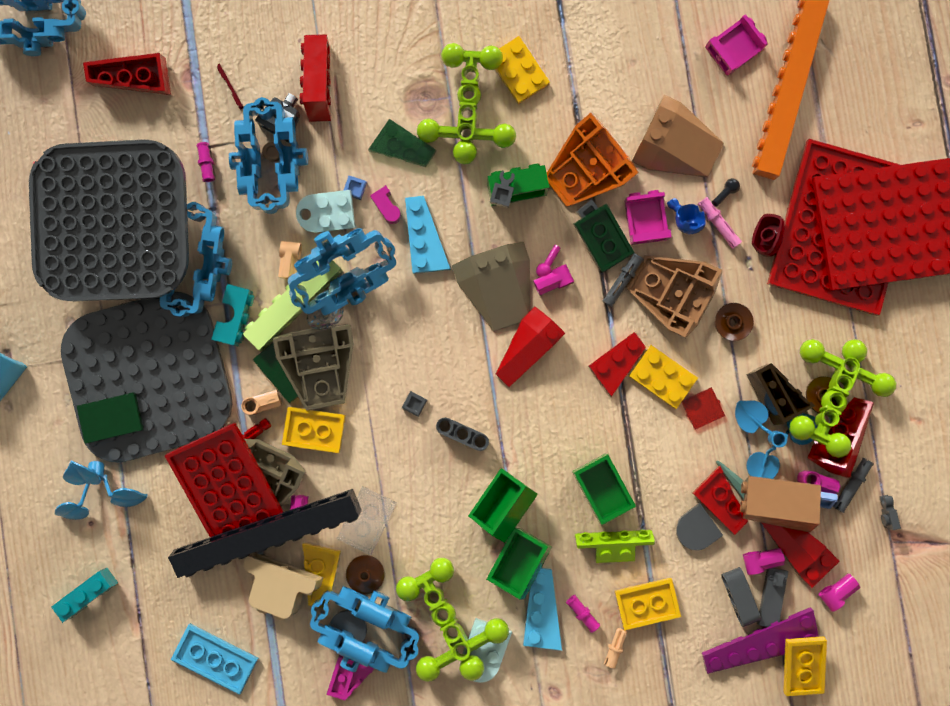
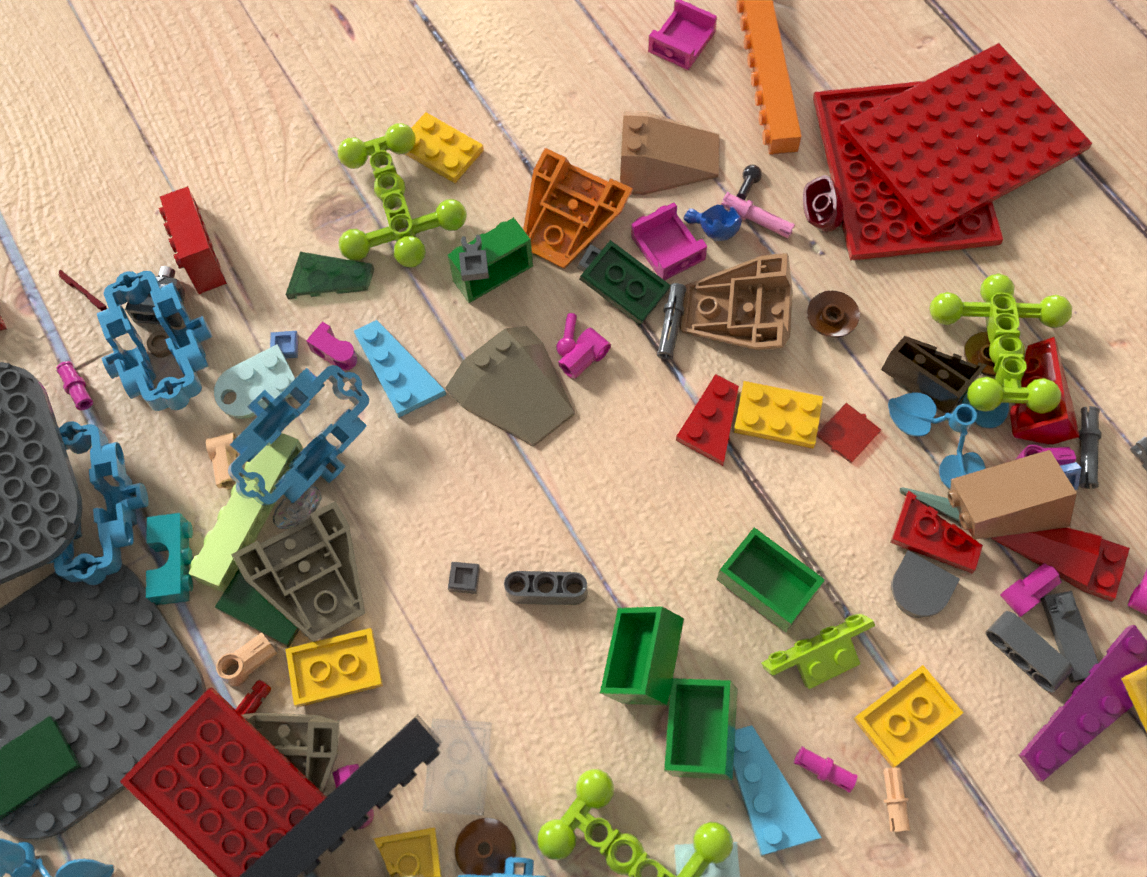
camera: 20 degrees left, 20 degrees down
(531, 341) = (587, 433): red wedge -> none

